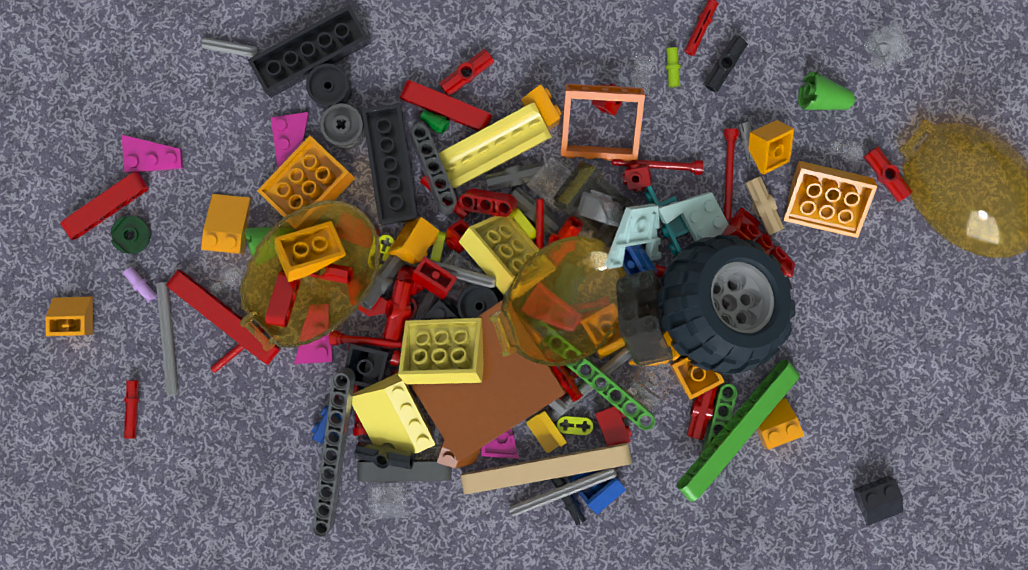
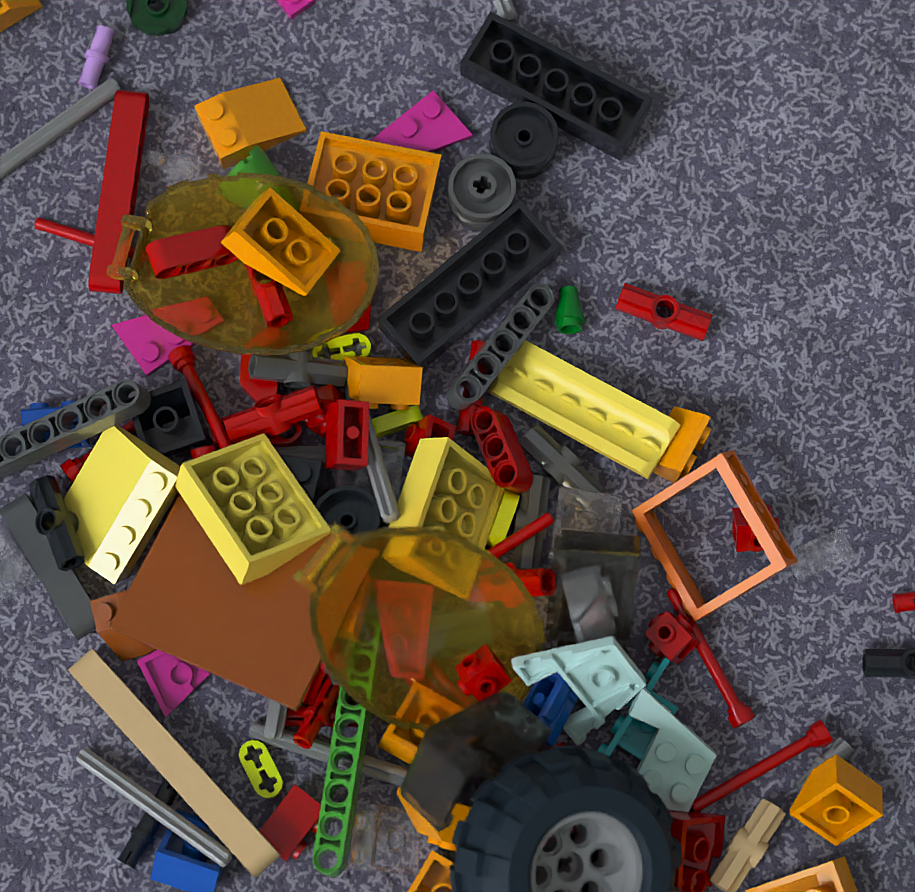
camera: 60 degrees right, 10 degrees down
(445, 106) = (599, 311): red beam -> none
(546, 431) = (227, 733): yellow panel -> none
(601, 285) = (482, 674): none -> red brick
(673, 67) = (859, 592): lime pin -> none

